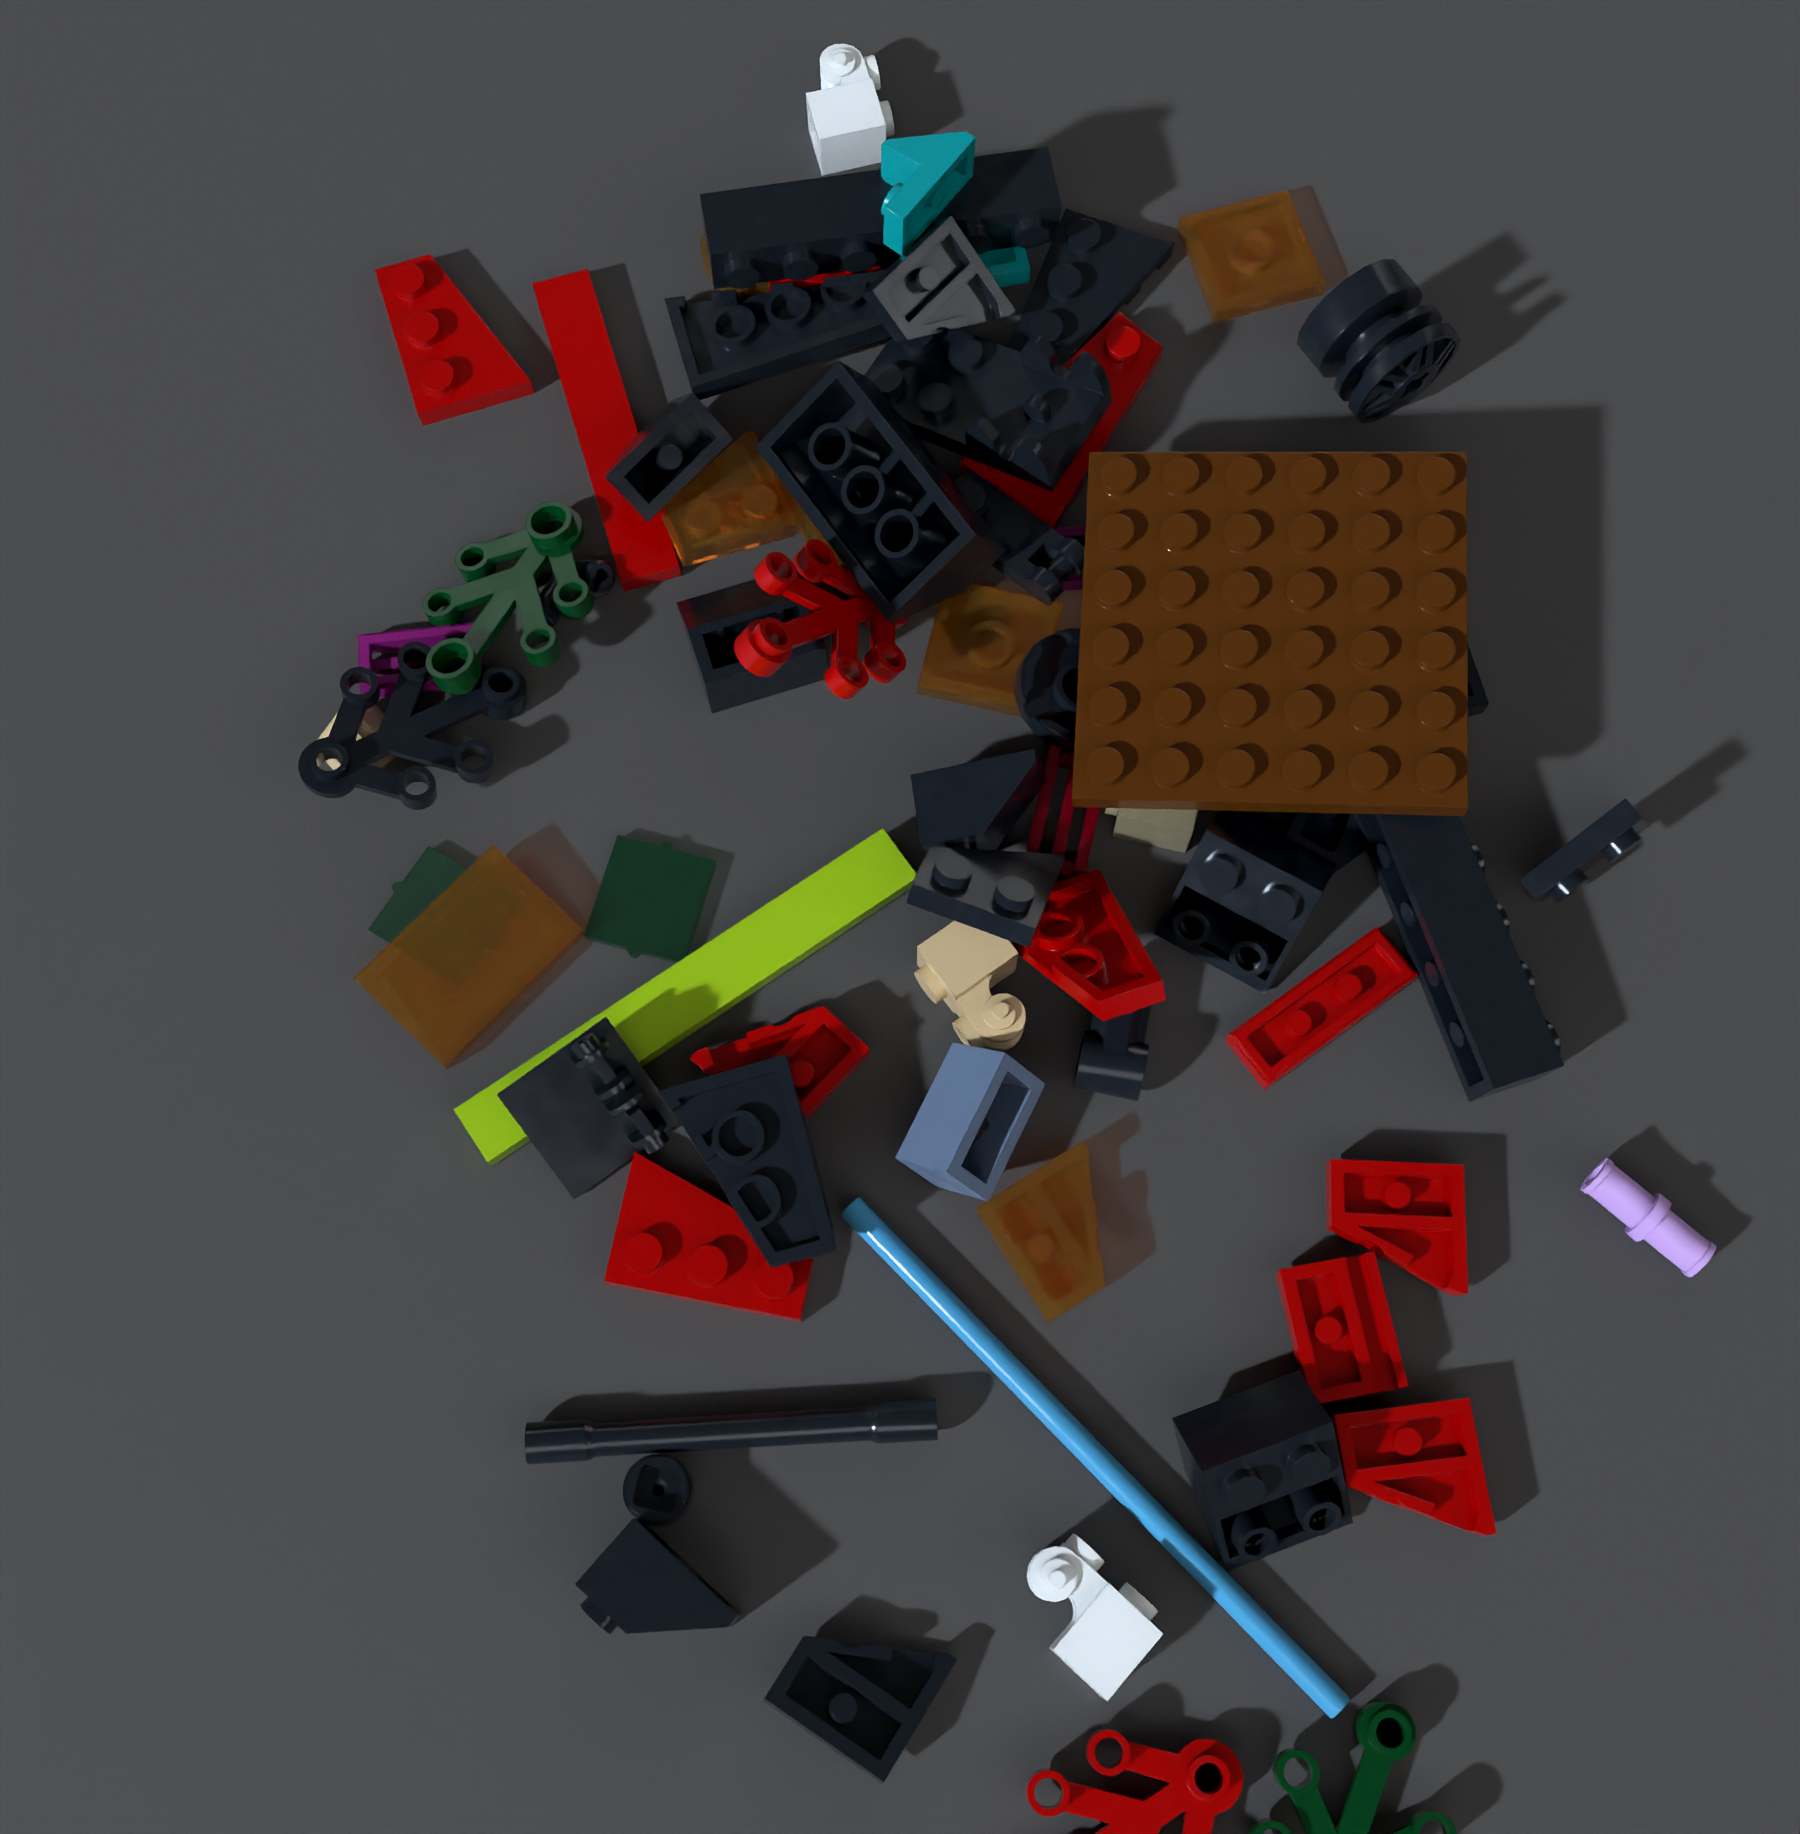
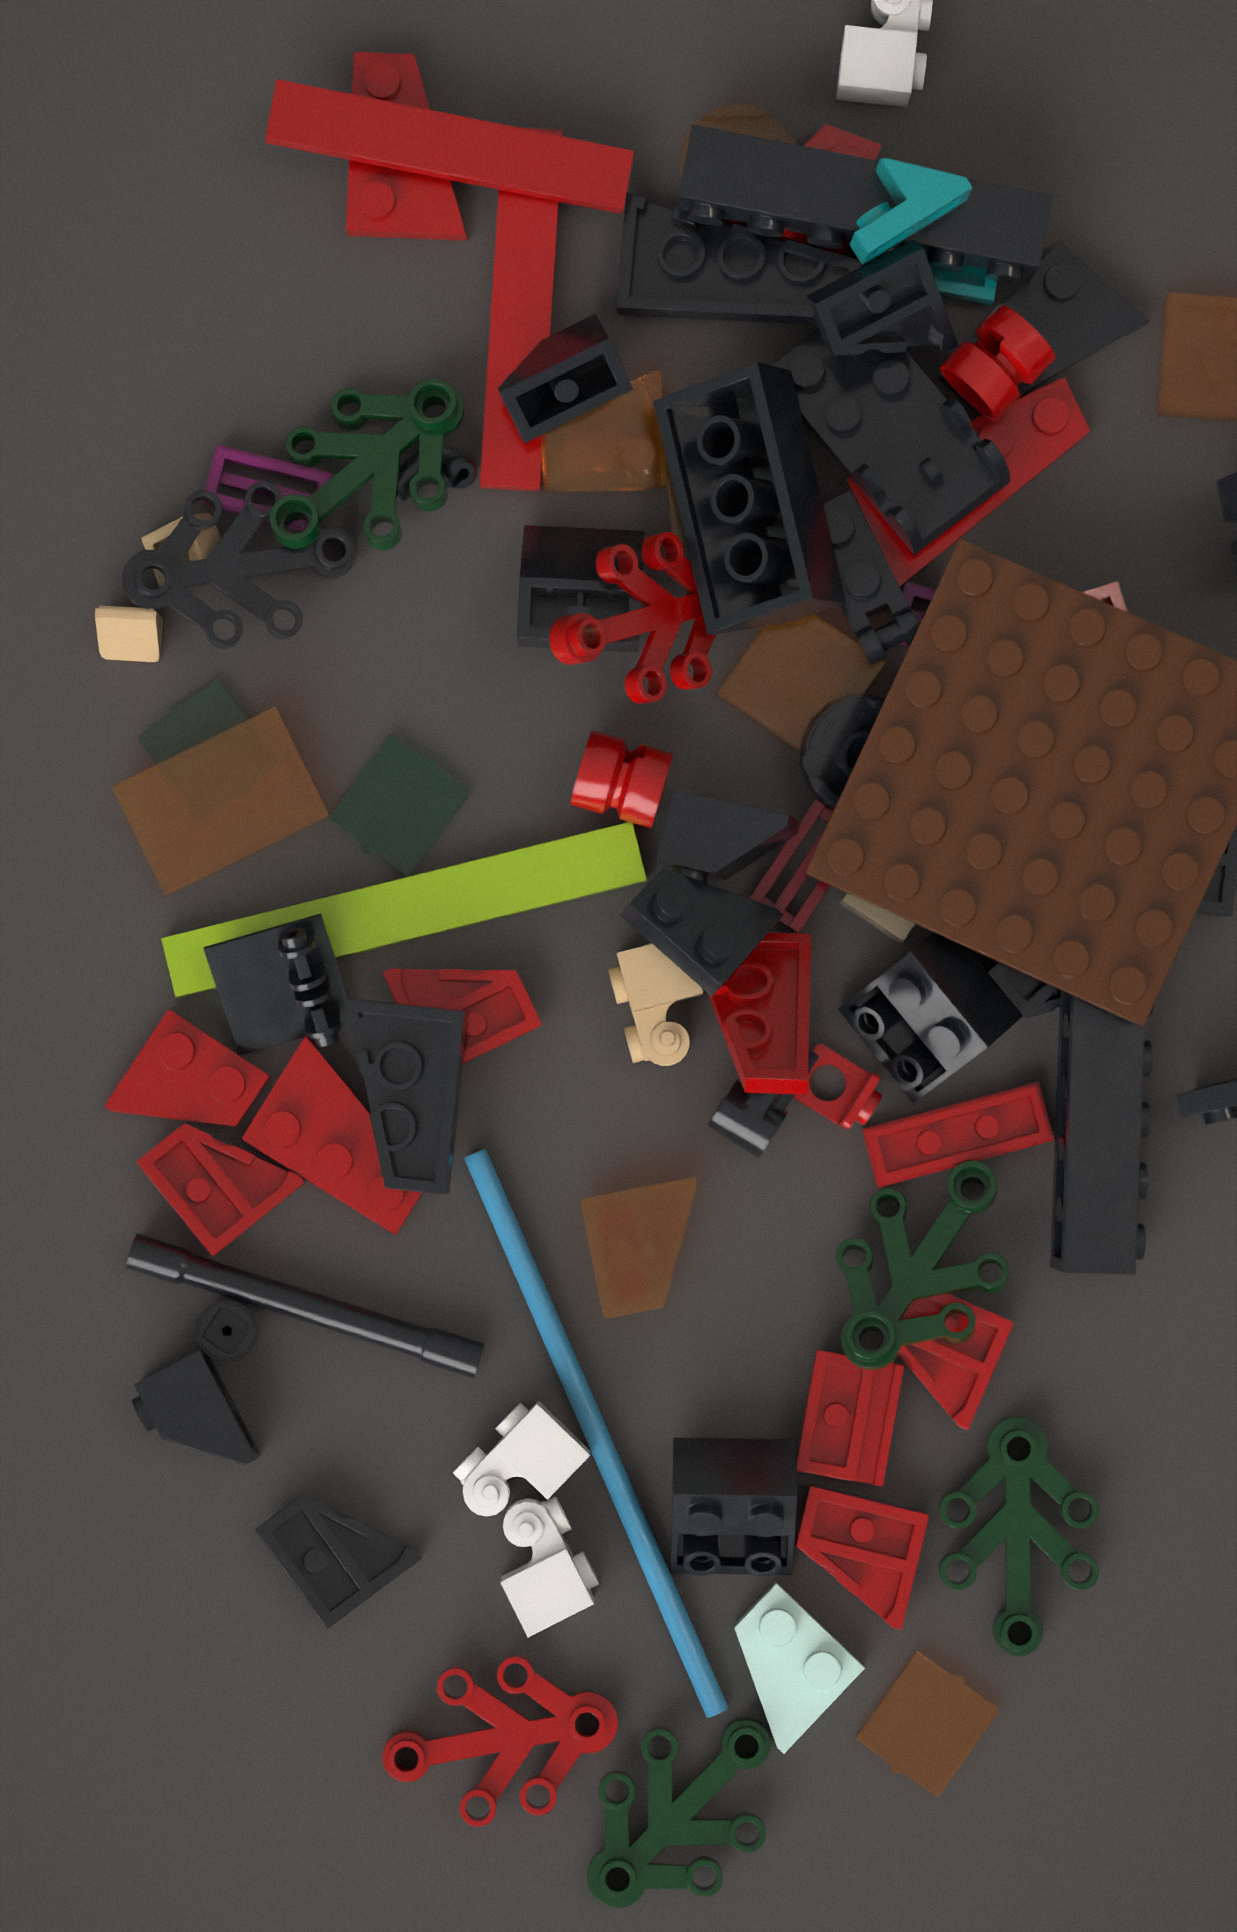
camera: 20 degrees right, 15 degrees up
(326, 830) = (129, 633): none -> tan slope
(485, 307) = (449, 146): none -> red tile
(528, 1240) = (188, 1077): none -> red wing
(593, 1340) = (215, 1185): none -> red wing
(857, 788) = (621, 778): none -> red wheel
(970, 1120) = (603, 1124): sand blue brick -> none
(1028, 1488) = (532, 1448): none -> white brick
(1059, 298) = (1001, 358): none -> red wheel
(1210, 1004) = (858, 1097): none -> red bracket
(1345, 1154) = (915, 1275): none -> dark green plant
(1397, 1620) = (792, 1663): none -> light aqua wing
(1560, 1375) = (1017, 1524): none -> dark green plant
(1564, 1630) = (927, 1723): none -> clear orange piece
(1648, 1217) = (1154, 1425): lavender pin -> none

